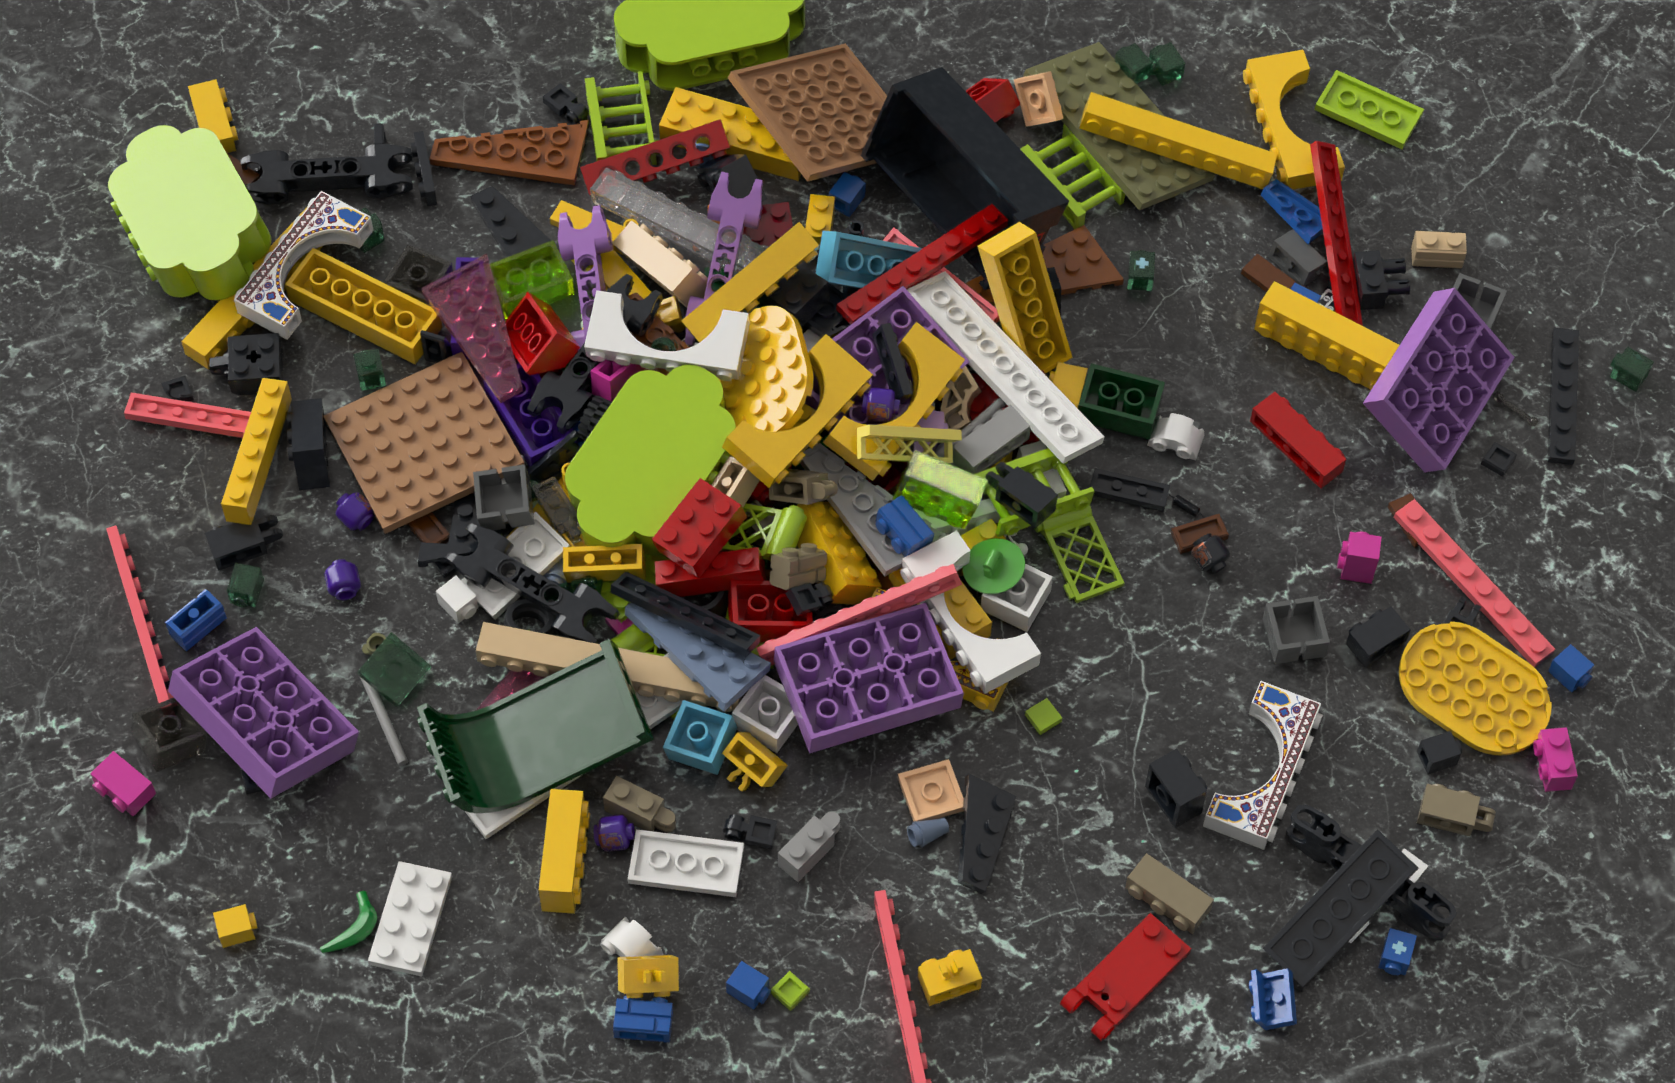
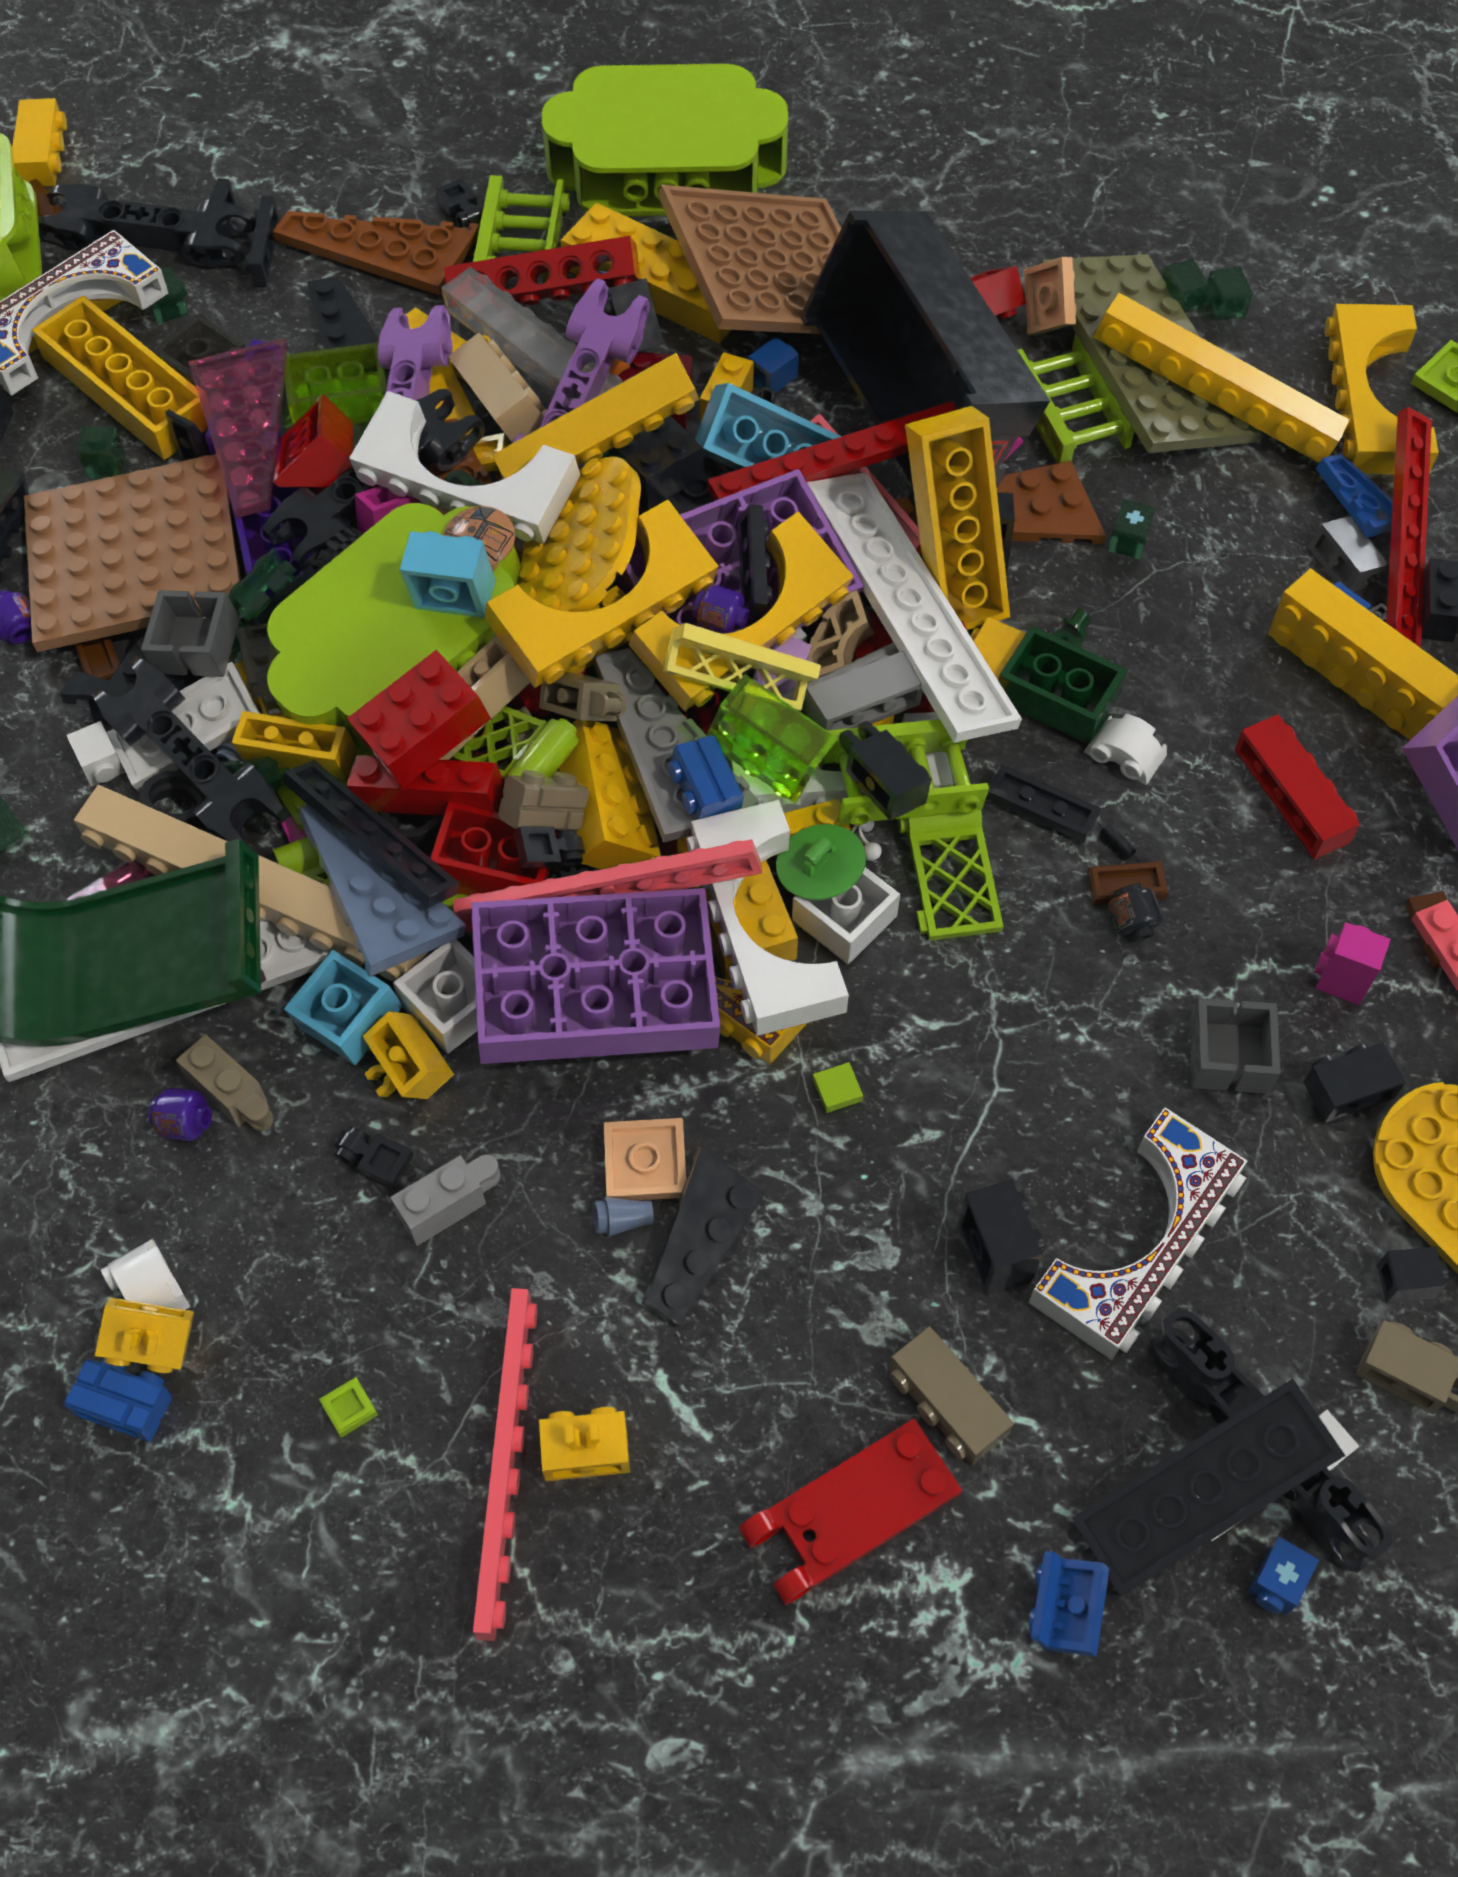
camera: 15 degrees right, 0 degrees up
(544, 443) = (268, 572): none -> clear green hinge
(564, 851) = (93, 1124): yellow brick -> none
(686, 863) = (265, 1181): white plate -> none
(691, 421) = (447, 573): none -> medium azure brick
(699, 388) = (487, 525): none -> nougat dish
(748, 985) = (287, 1385): blue brick -> none
(1118, 357) = (1074, 628): none -> dark green piece
(1264, 273) = (1293, 561): reddish brown tile -> none

